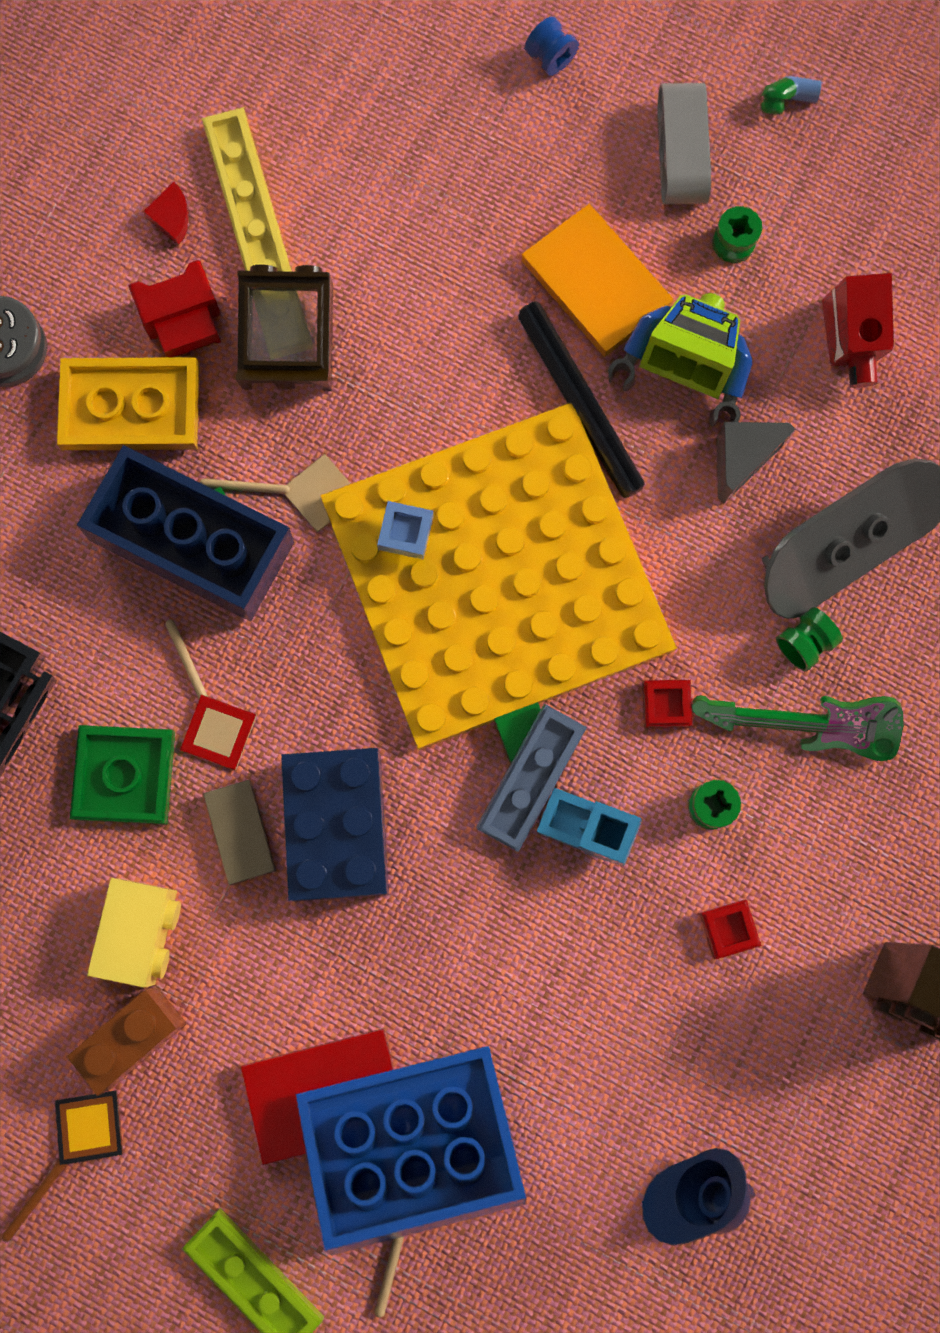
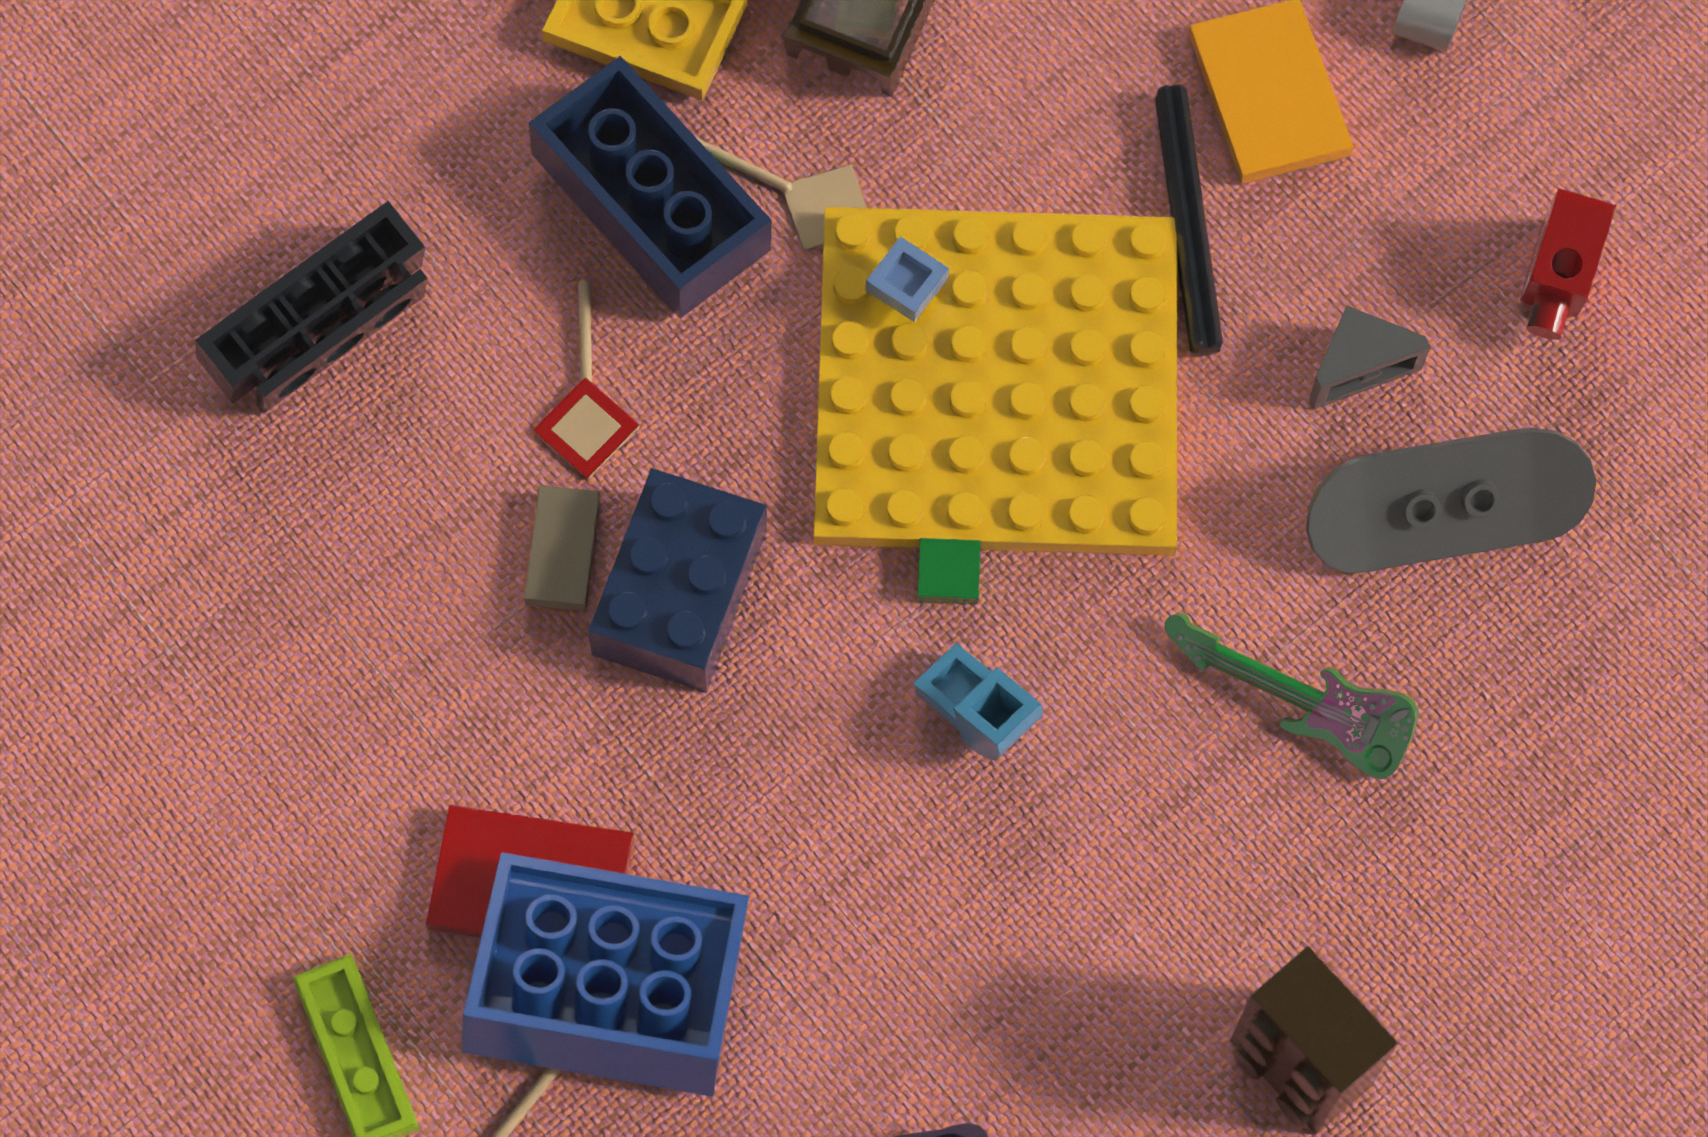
camera: 25 degrees right, 10 degrees down
(85, 1131) = (238, 807): piece -> none
(122, 774) = (454, 430): green tile -> none
(126, 1040) = (333, 717): dark orange brick -> none
(134, 933) = (393, 605): light yellow brick -> none
(531, 777) = (934, 621): sand blue tile -> none
(667, 704) = (1137, 609): red tile -> none
(692, 346) = (1348, 207): torso -> none
(702, 810) = (1136, 755): green wheel -> none
(730, 929) = (1099, 896): red tile -> none
(732, 245) = (1466, 116): green wheel -> none
(809, 639) = (1343, 599): green wheel -> none

